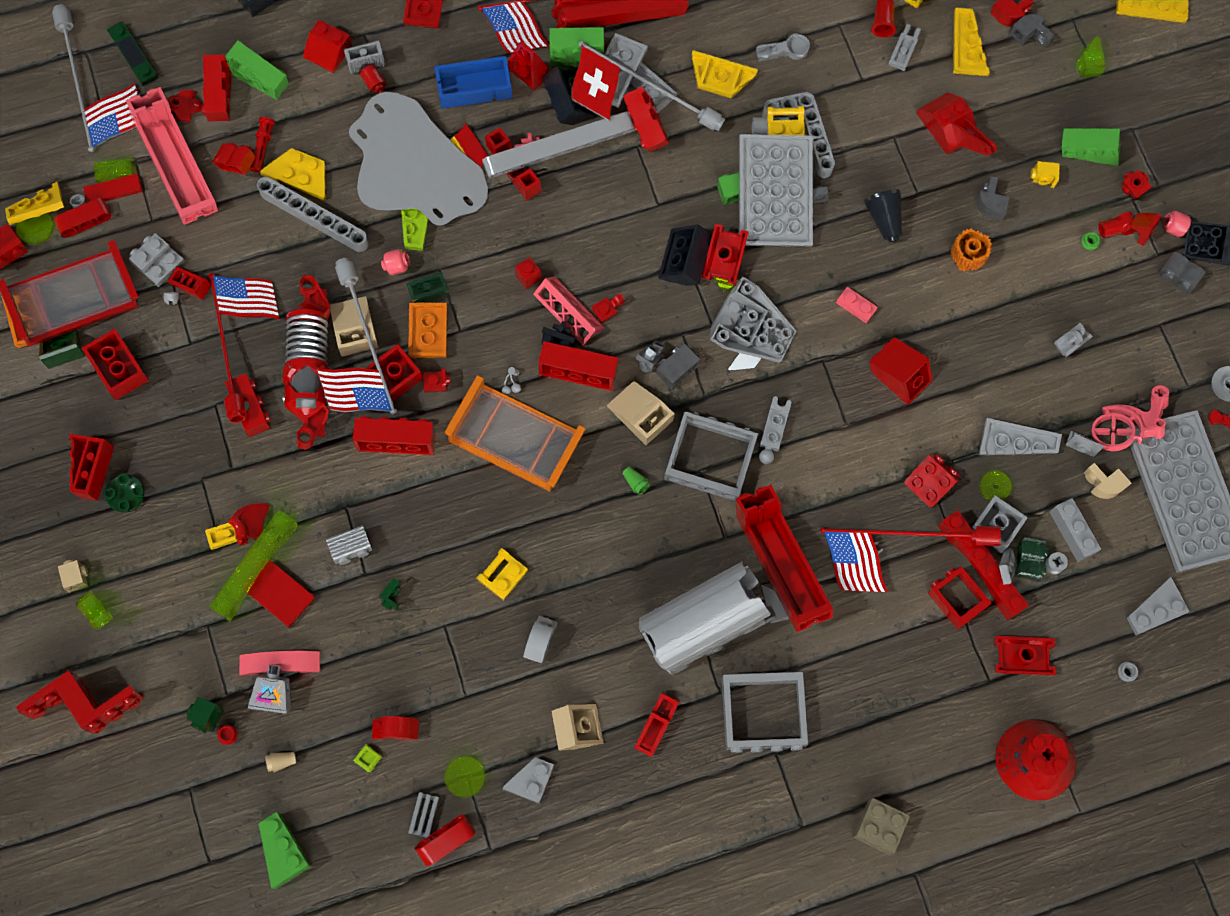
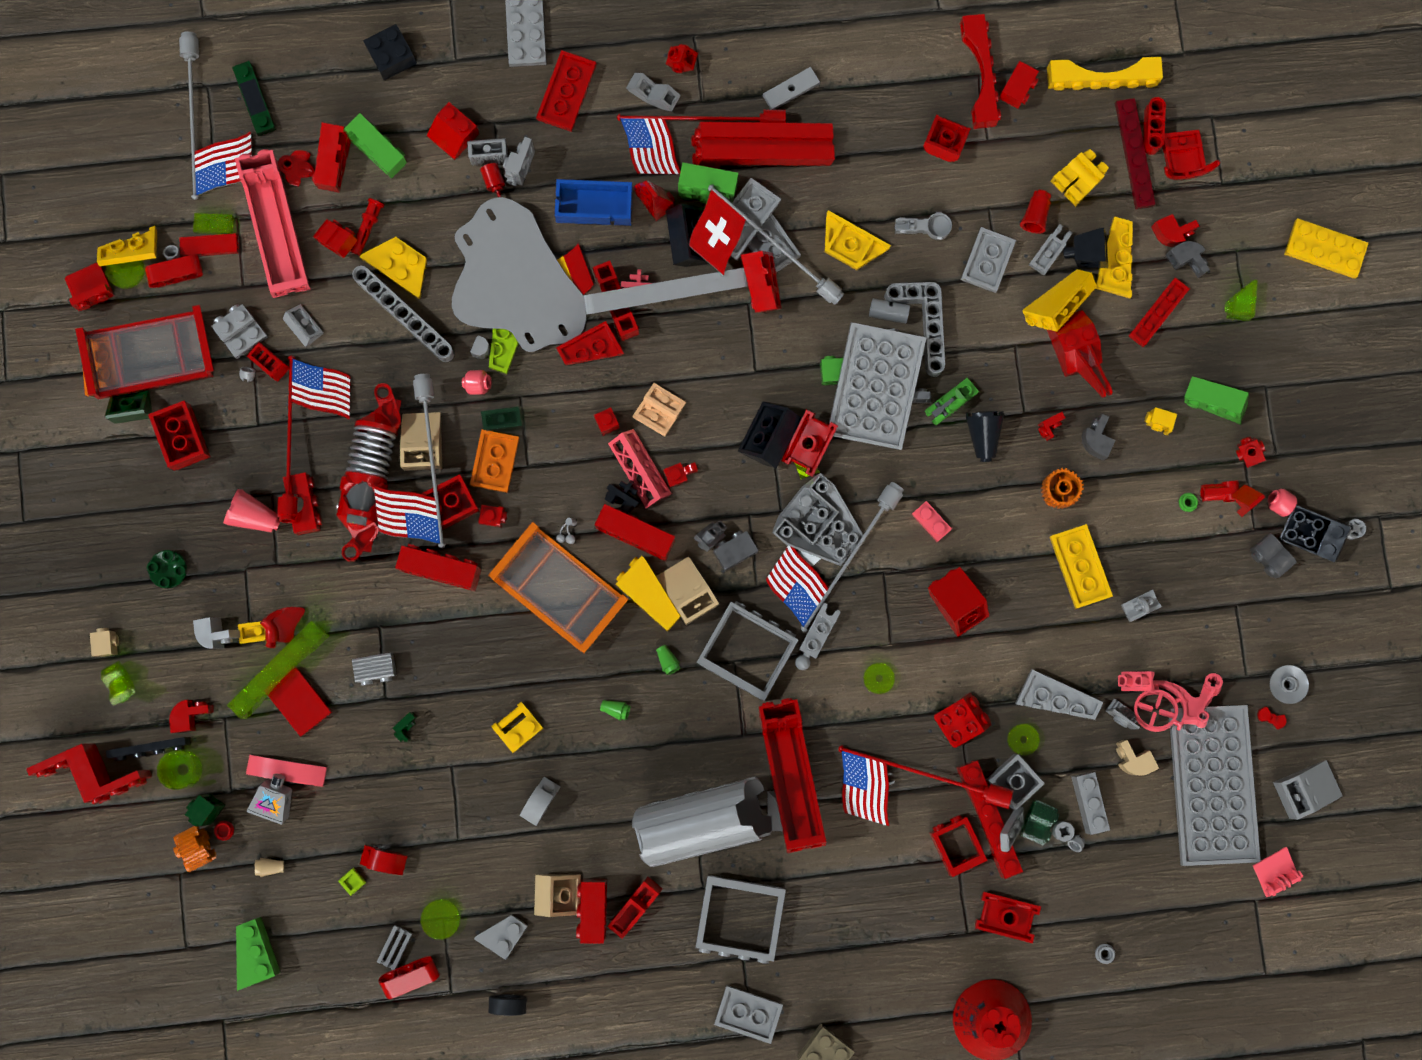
camera: 10 degrees right, 10 degrees up
(88, 465) = (136, 536): red wedge -> none
(143, 665) = (140, 750): none -> black plate
(163, 674) = (168, 769): none -> clear neon green piece
(166, 628) = (183, 718): none -> red brick
(179, 544) = (210, 633): none -> light grey brick
(199, 423) = (250, 513): none -> coral cone
(200, 754) = (194, 848): none -> orange brick
(216, 244) = (302, 325): none -> light grey slope
(393, 231) = (480, 348): none -> light grey brick
(395, 60) = (518, 164): none -> light grey plate
(497, 209) = (591, 345): none -> red wing
(551, 844) = (507, 1004): none -> black tyre
(575, 254) = (659, 409): none -> light nougat slope
(596, 536) = (617, 709): none -> bright green cone
(603, 421) = (646, 591): none -> yellow slope
(616, 732) = (592, 911): none -> red brick
(748, 387) = (801, 585): none -> flag
(785, 127) = (902, 319): yellow plate -> none
(794, 804) = (748, 1014): none -> light grey plate
(848, 193) = (952, 401): none -> bright green plate
(848, 451) = (887, 678): none -> clear neon green piece
(850, 66) = (988, 260): none -> light grey plate
(926, 87) = (1060, 302): none -> yellow slope
(940, 39) = (1089, 249): none -> black torso
(944, 196) = (1053, 422): none -> red bracket
(1007, 317) = (1081, 566): none -> yellow plate
(1017, 82) = (1159, 312): none -> red plate
(1072, 577) = (1076, 843): none -> light grey hinge
(1088, 408) = (1136, 681): none -> coral hips
(1158, 609) = (1154, 897): light grey wing -> none

